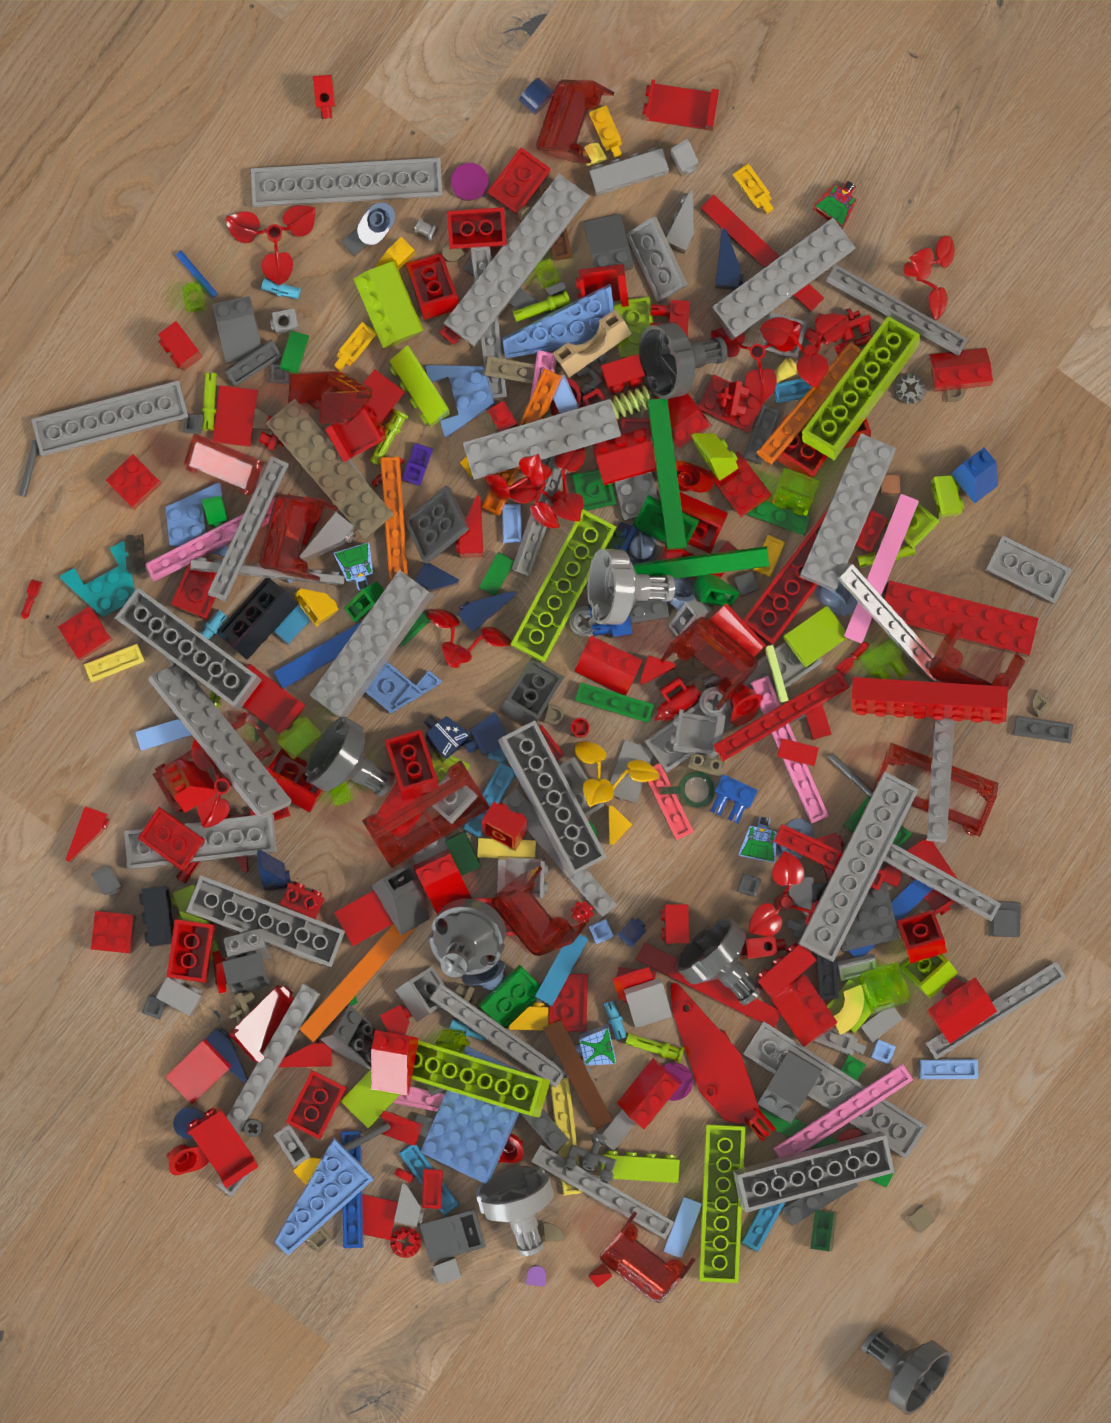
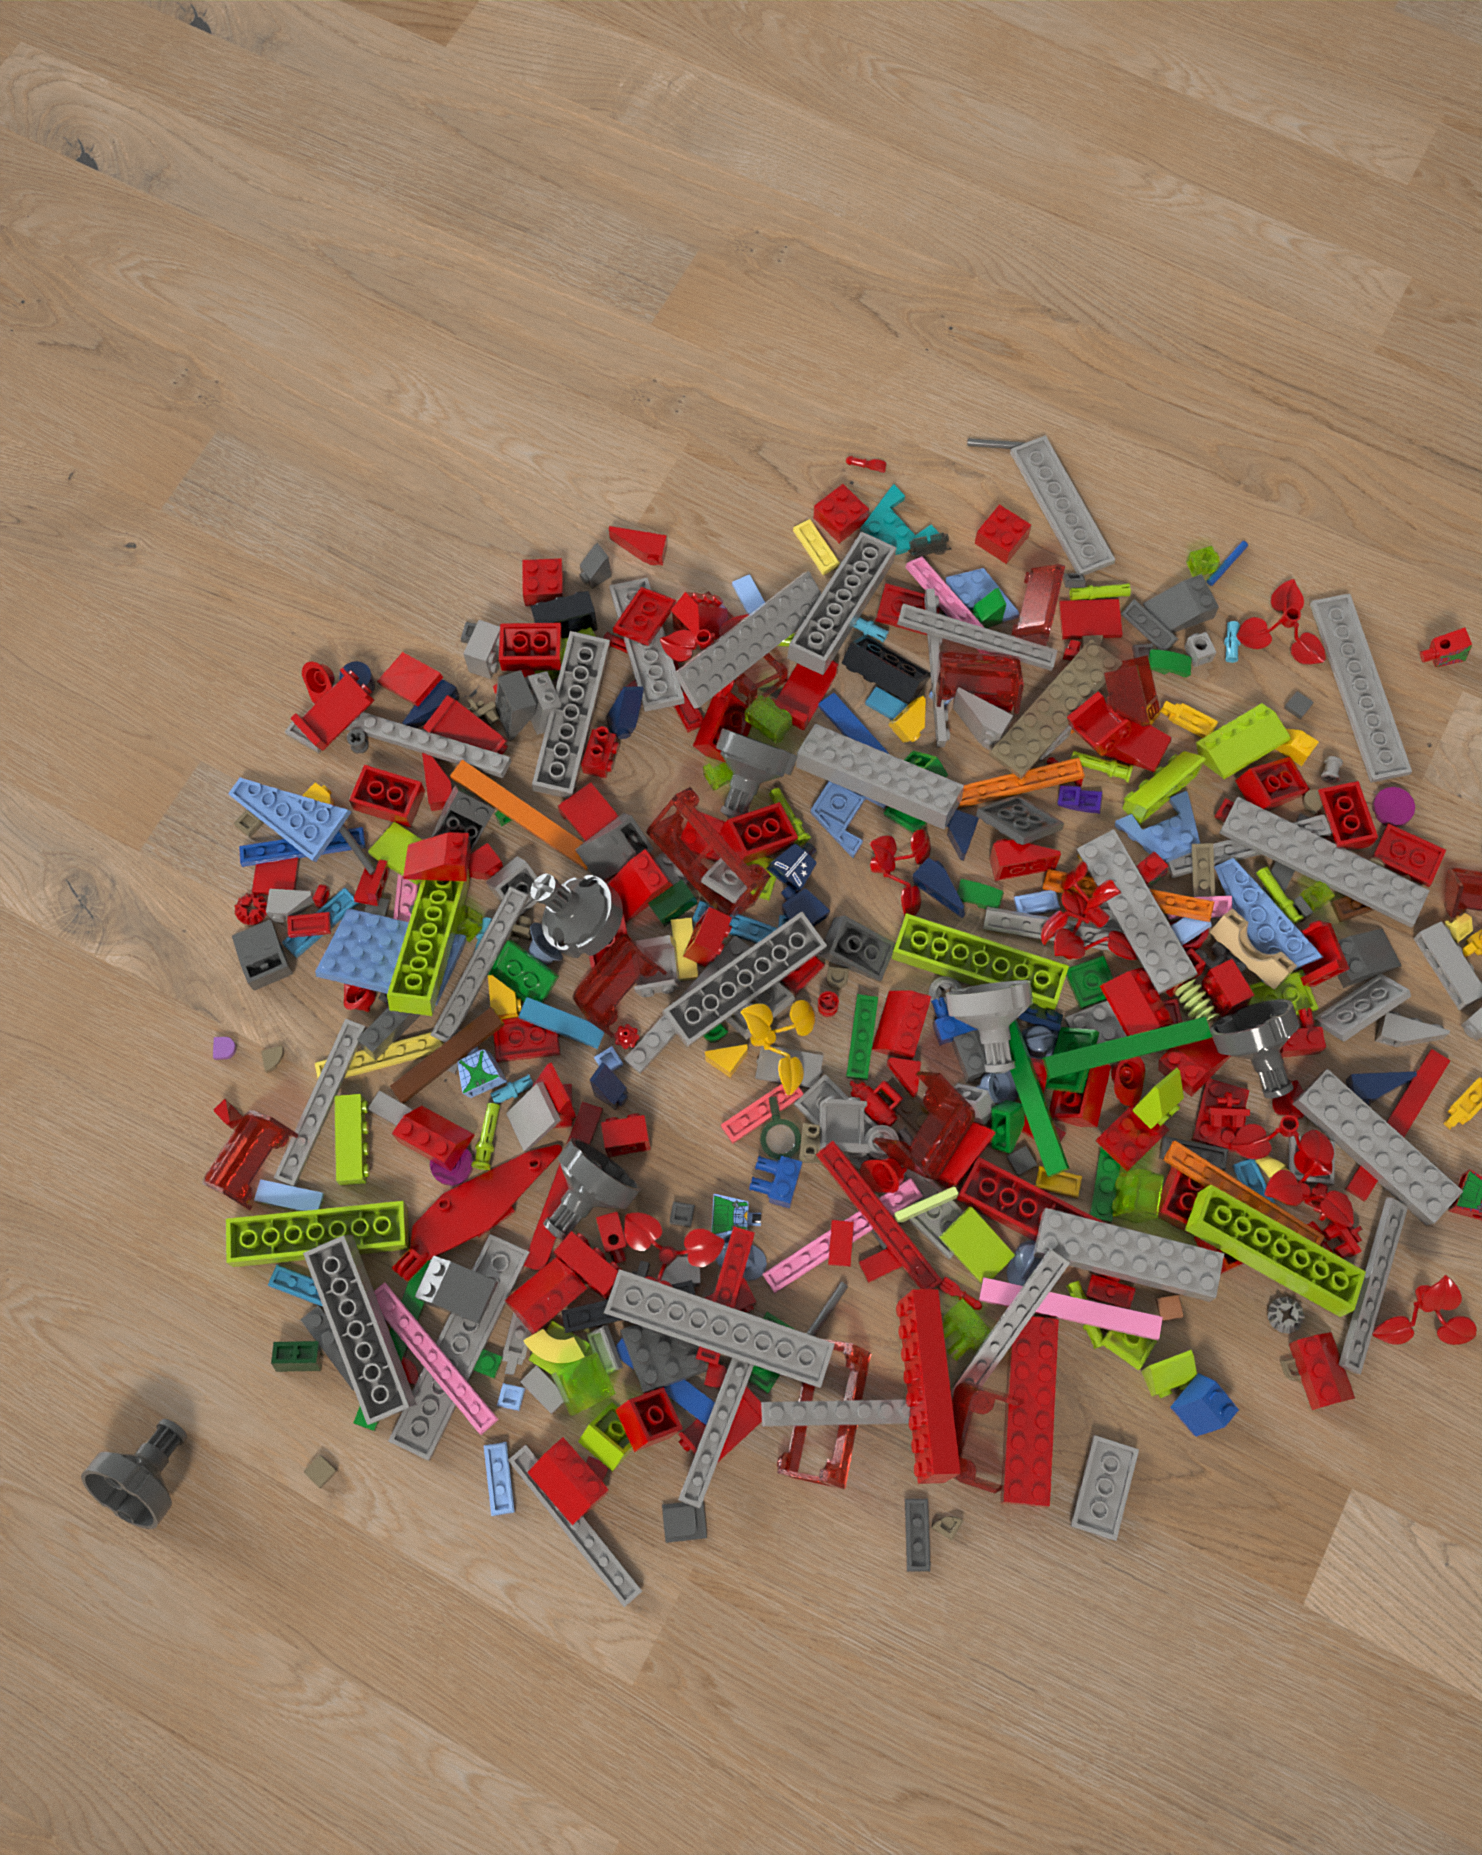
camera: 80 degrees right, 15 degrees down
(176, 341) = (1150, 552): red brick -> none
(292, 1145) = (339, 779): light grey slope -> none
(356, 564) = (962, 753): torso -> none
(376, 223) = (1325, 717): sand blue piece -> none
(378, 739) = (803, 837): none -> lime pin
(446, 1271) = (222, 953): light grey brick -> none
(516, 1198) = (299, 1005): light grey piece -> none
(591, 1158) = (353, 1081): dark grey piece -> none

